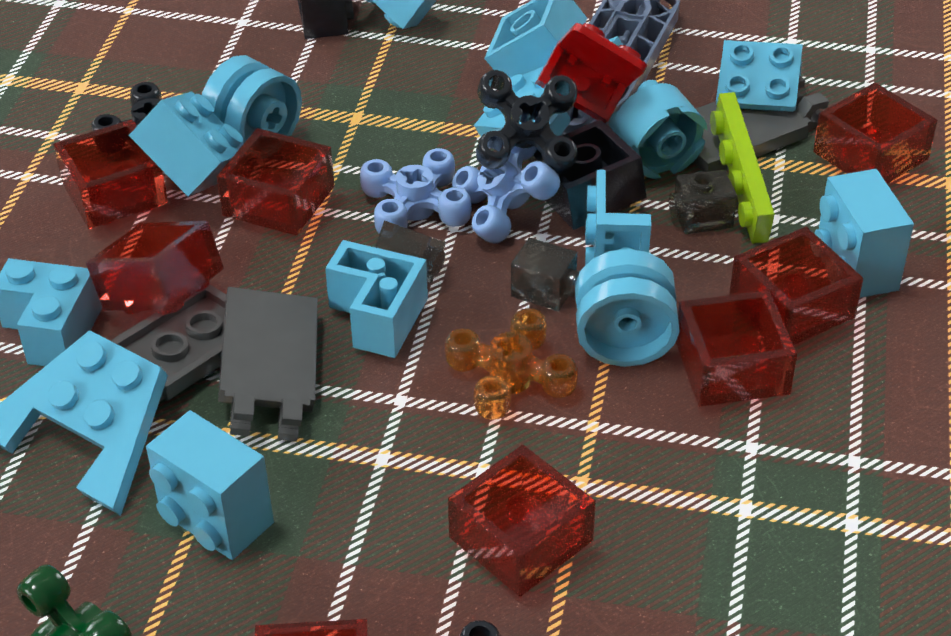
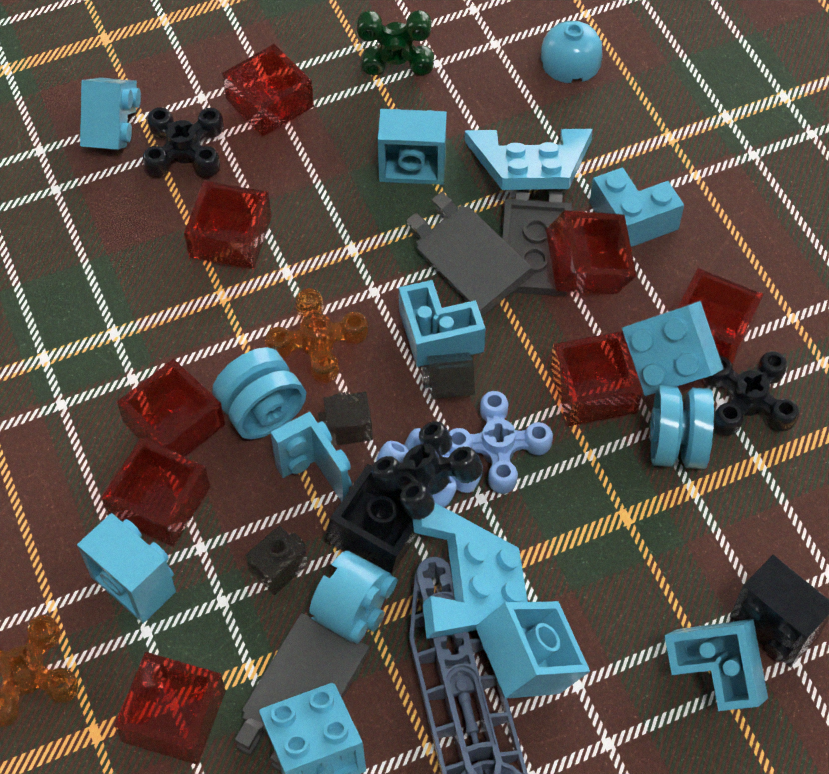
camera: 145 degrees right, 15 degrees up
(596, 67) = (418, 562): red bracket -> none
(744, 171) = (275, 613): lime plate -> none

